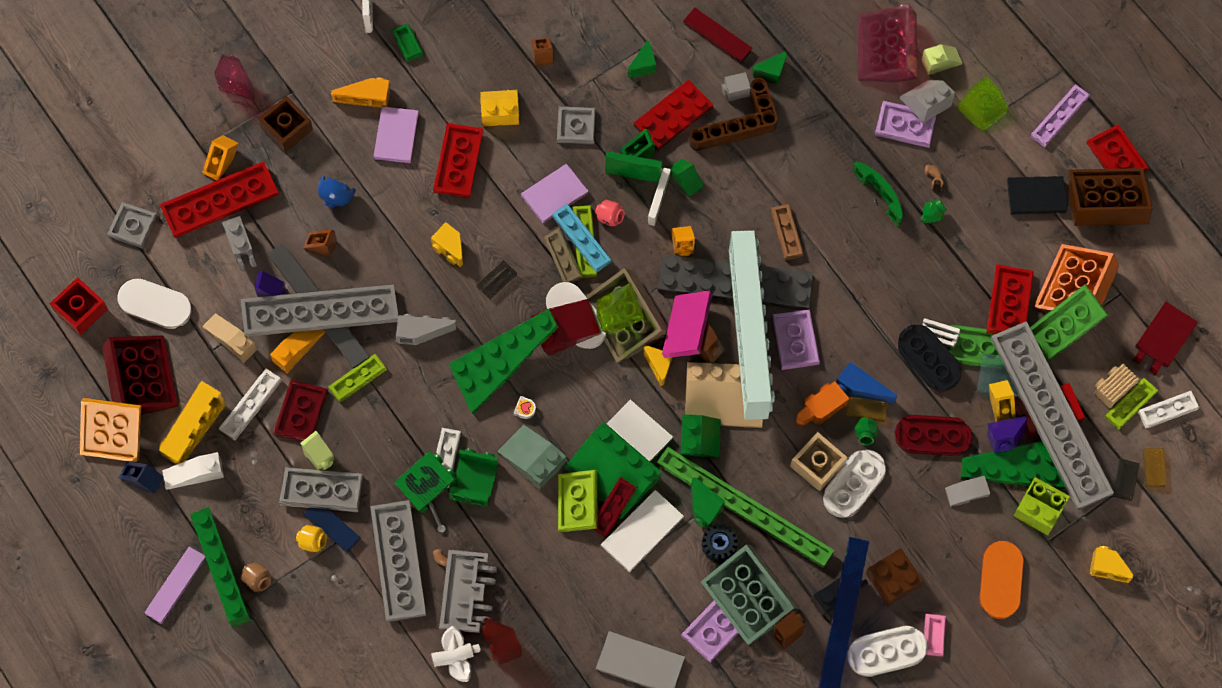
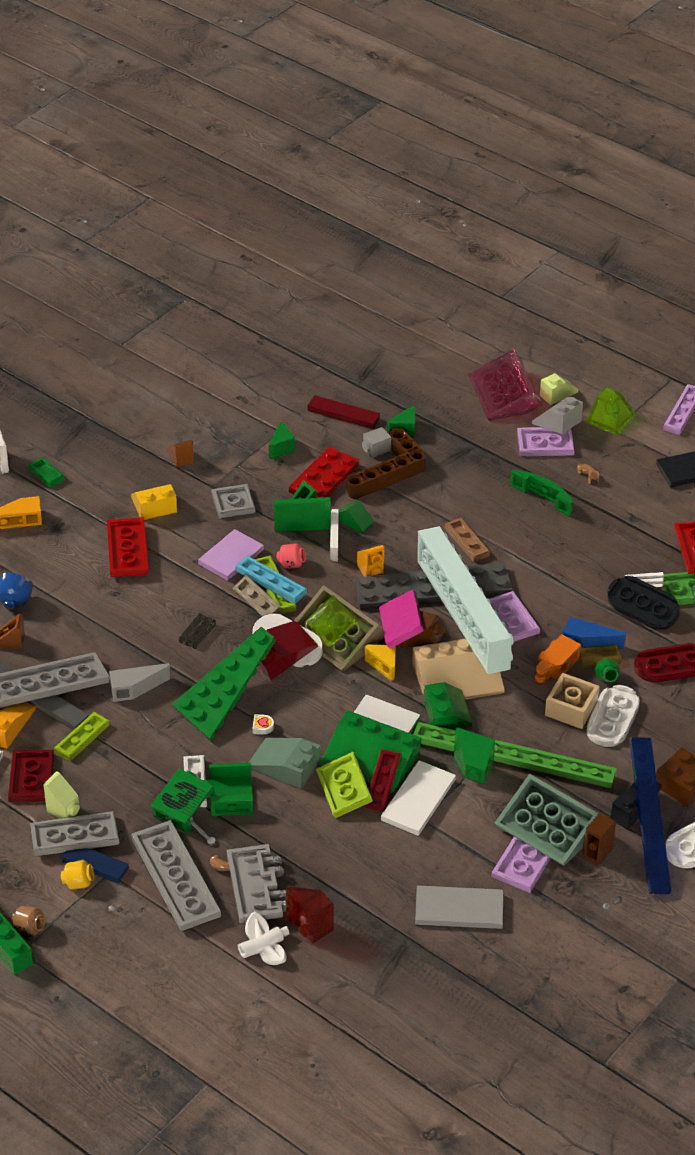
camera: 15 degrees left, 25 degrees down
(396, 134) = (58, 541): lavender tile -> none
(448, 242) = (140, 610): yellow slope -> none
(727, 536) = (495, 795): black bush -> none
(933, 211) = (599, 495): green rock -> none

